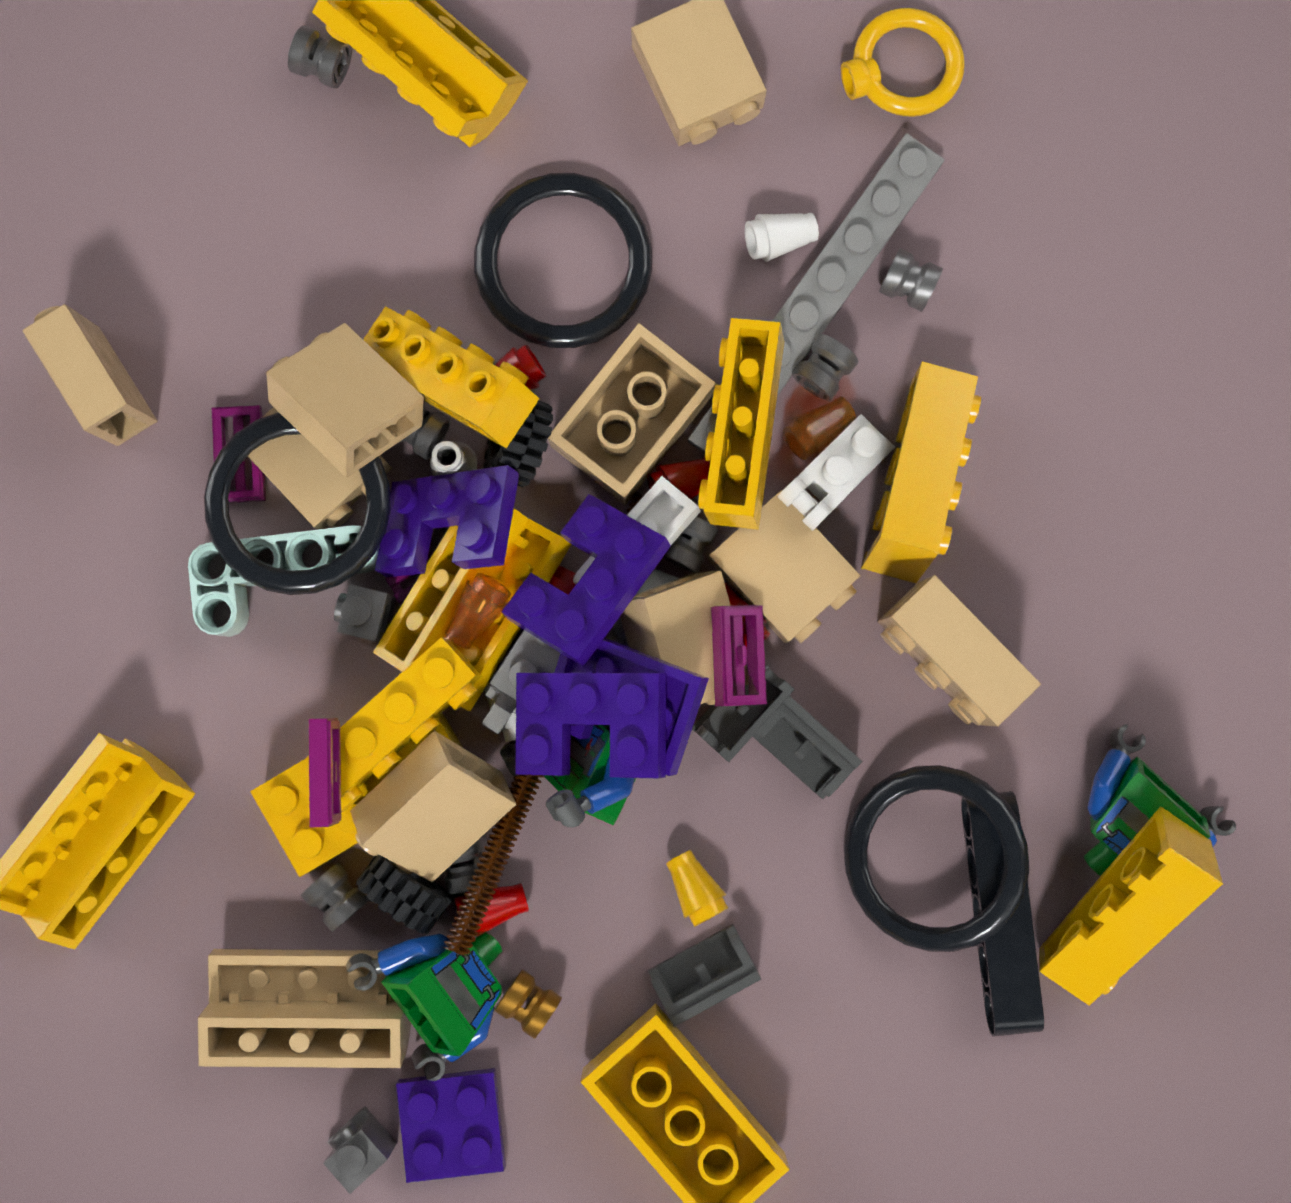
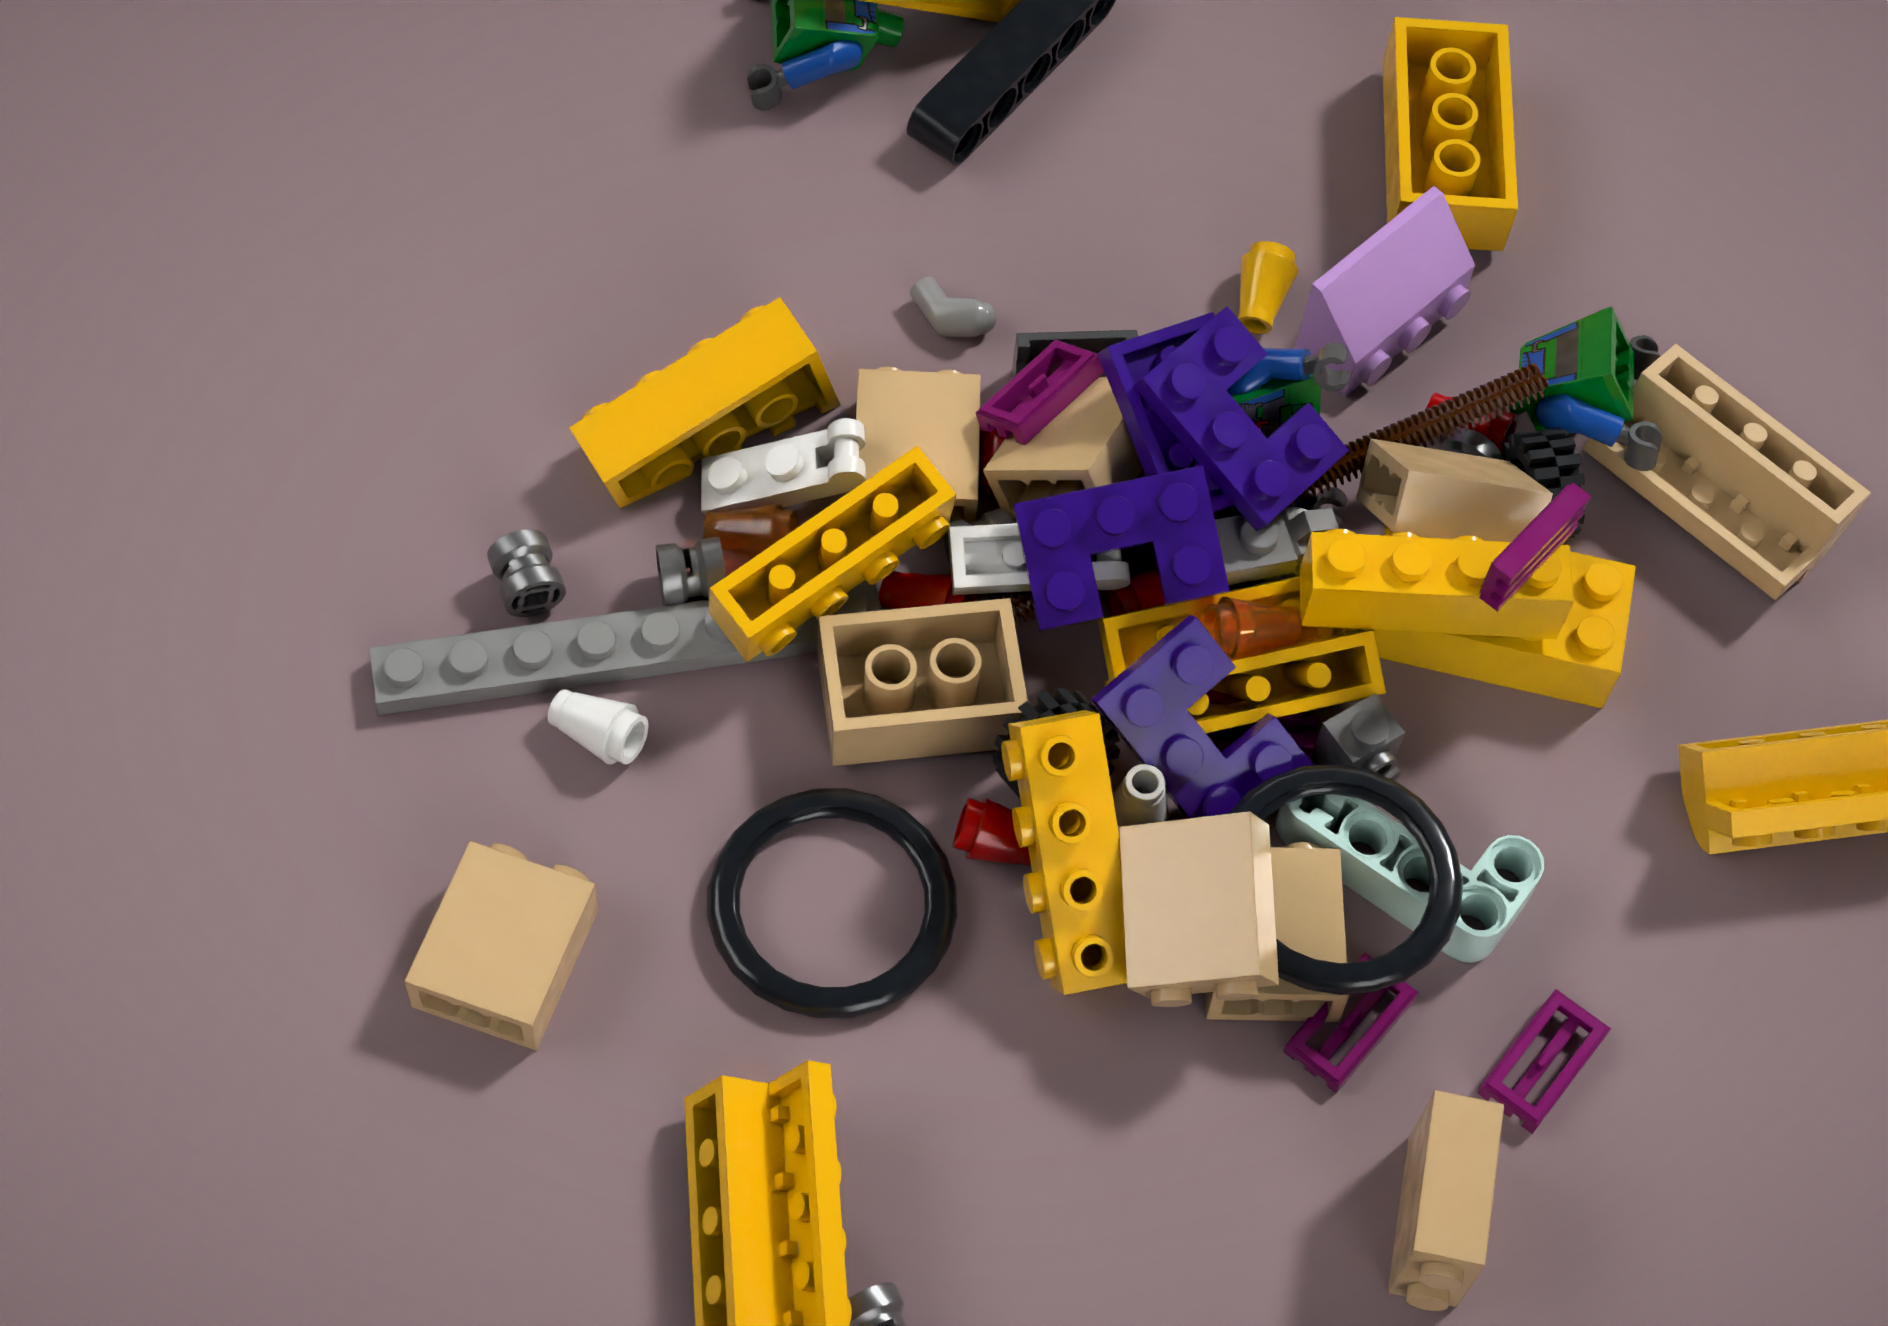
camera: 145 degrees left, 25 degrees down
(138, 528) = (1514, 1100): none -> magenta tile
(334, 897) = (1615, 535): flat silver wheel -> none
(358, 1150) = (1772, 342): flat silver brick -> none
(451, 1125) = (1671, 298): dark purple plate -> none
(537, 1010) = (1506, 320): pearl gold wheel -> none
(607, 945) = (1390, 290): none -> lavender slope
(704, 975) = (1321, 215): dark grey hinge -> none
(807, 748) = (1045, 289): dark grey hinge -> none
(855, 685) = (952, 315): none -> light grey arm
(862, 74) = (352, 793): yellow piece -> none
(957, 654) = (846, 243): tan brick -> none
(1002, 817) = (972, 186): black wedge -> none

